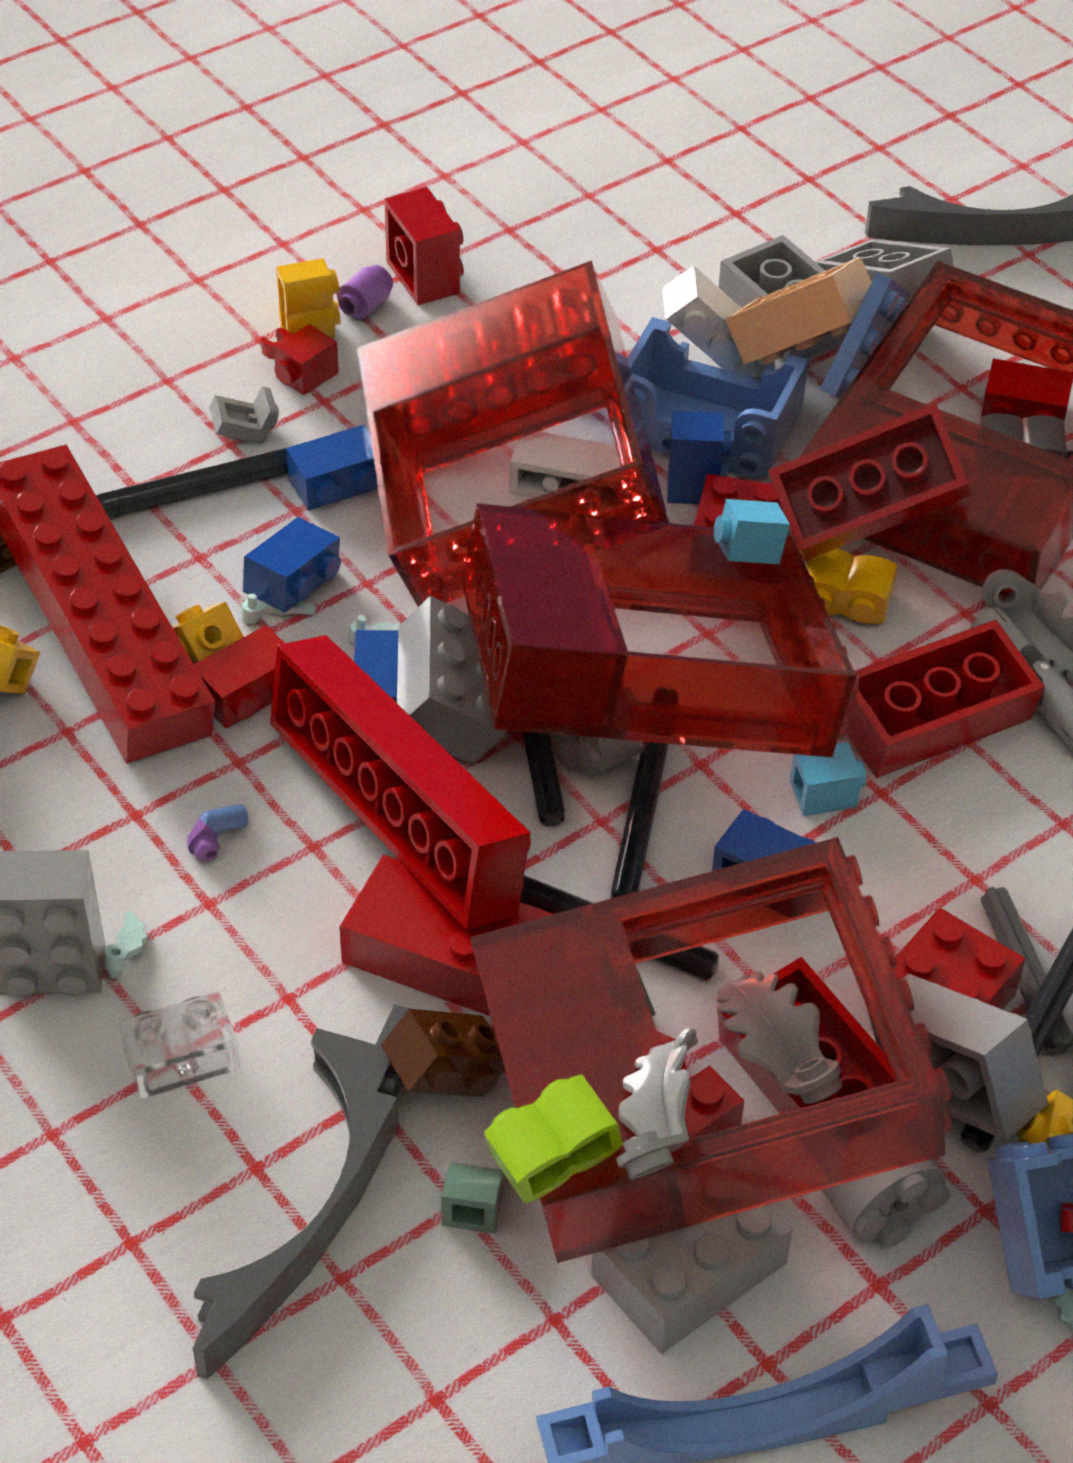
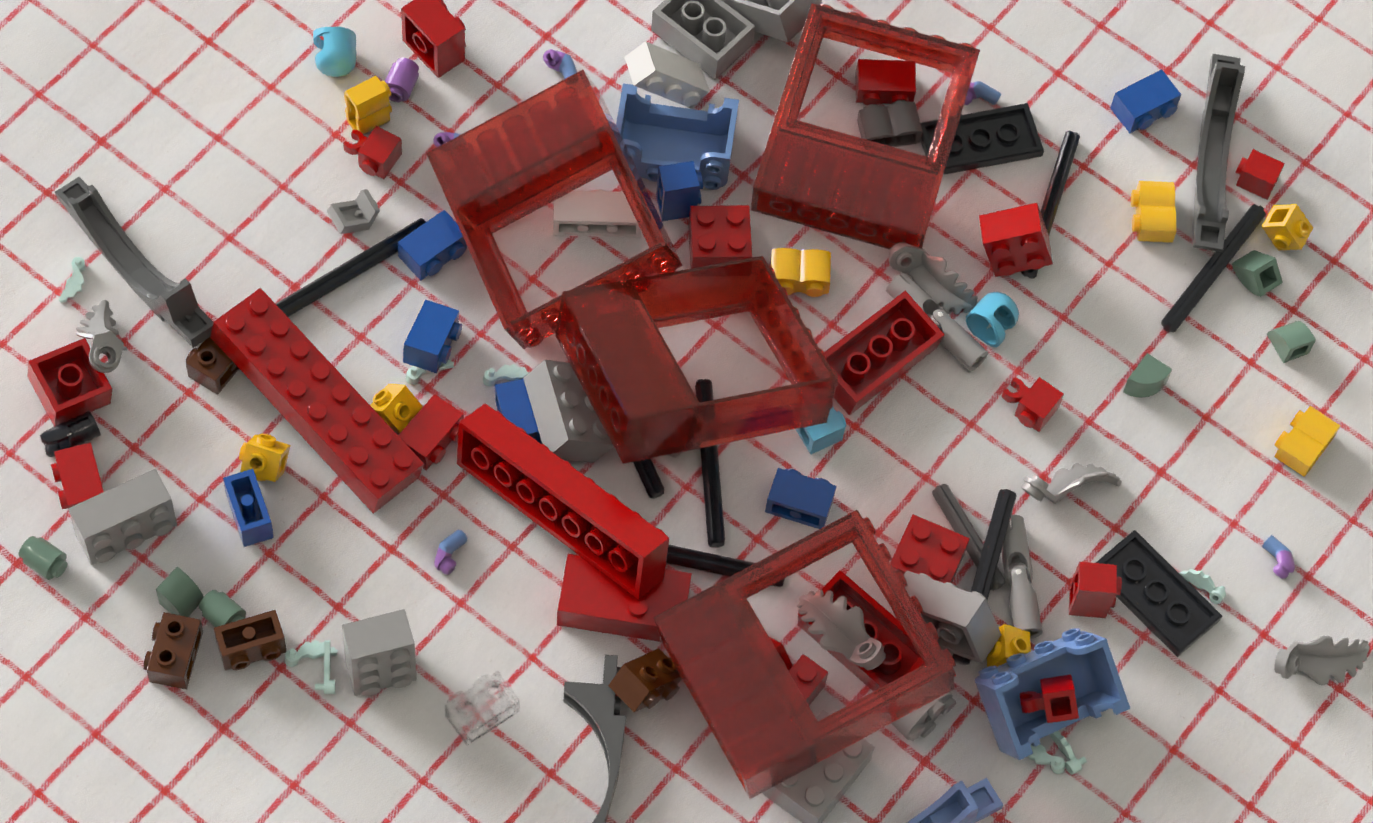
camera: 20 degrees left, 15 degrees up
(129, 943) = (423, 643): light aqua piece -> none
(291, 241) = (337, 51): none -> medium azure helmet
(472, 1197) = (684, 763): sand green brick -> none
(552, 1137) = (742, 741): lime brick -> none
(656, 1107) = (797, 708): light grey plant -> none
(751, 531) = (741, 267): medium azure brick -> none
(800, 313) = (727, 63): light nougat brick -> none
(870, 482) = (806, 208): red brick -> none
(873, 320) = (777, 78): medium blue plate -> none

